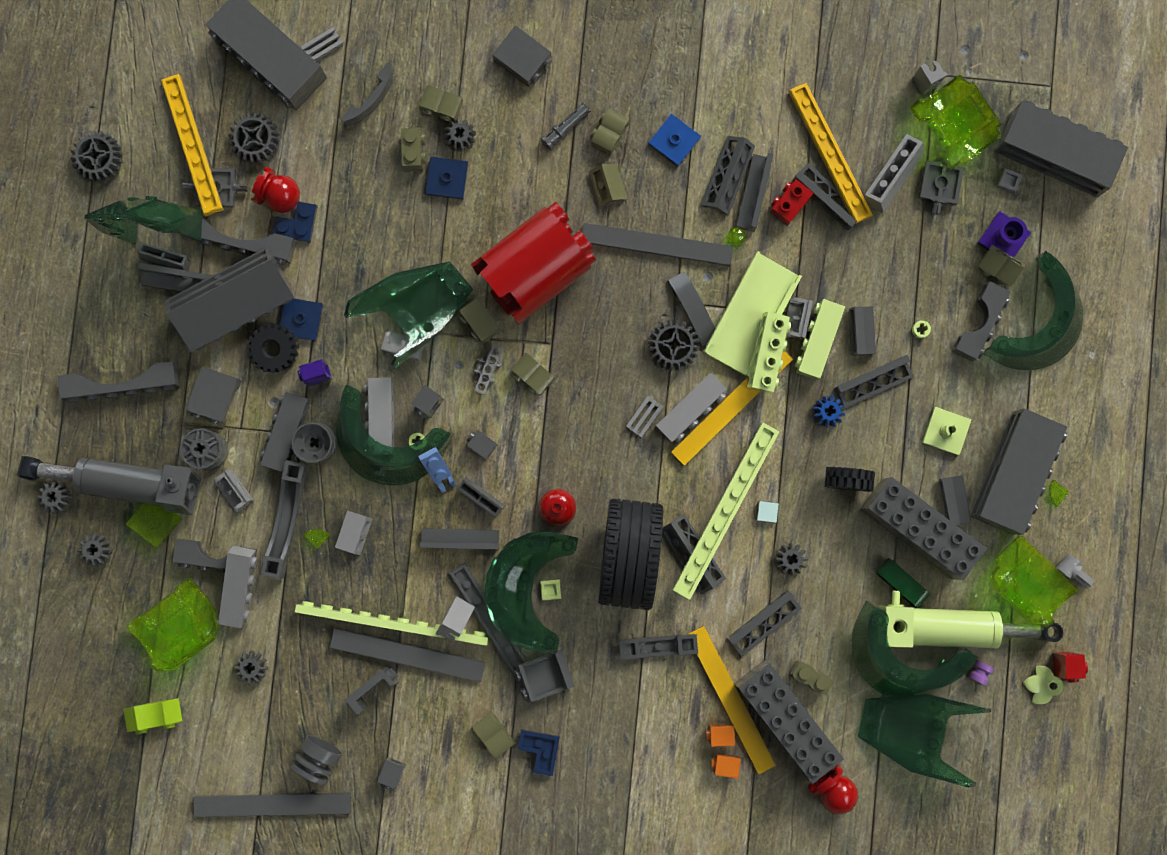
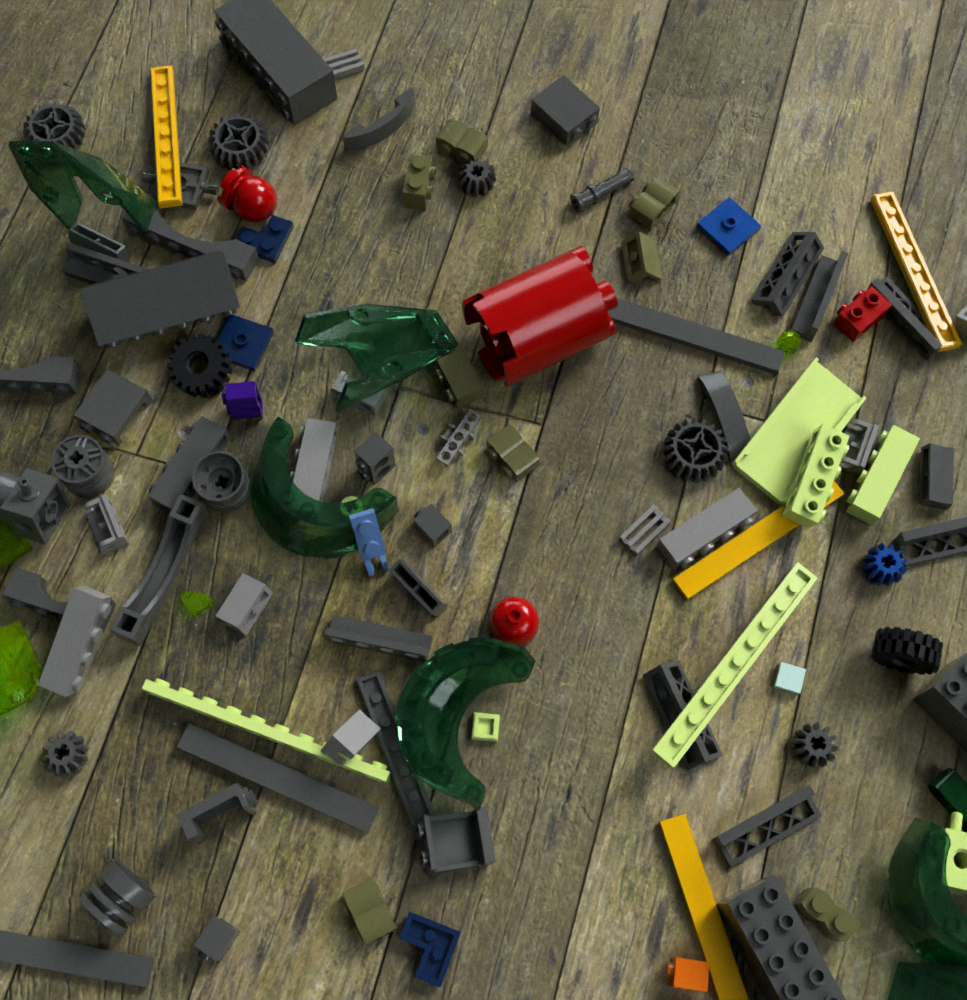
camera: 10 degrees right, 15 degrees down
(447, 178) = (452, 221): dark blue plate -> none
(631, 554) = (605, 687): black tyre -> none
(658, 646) = (619, 830): dark grey slope -> none

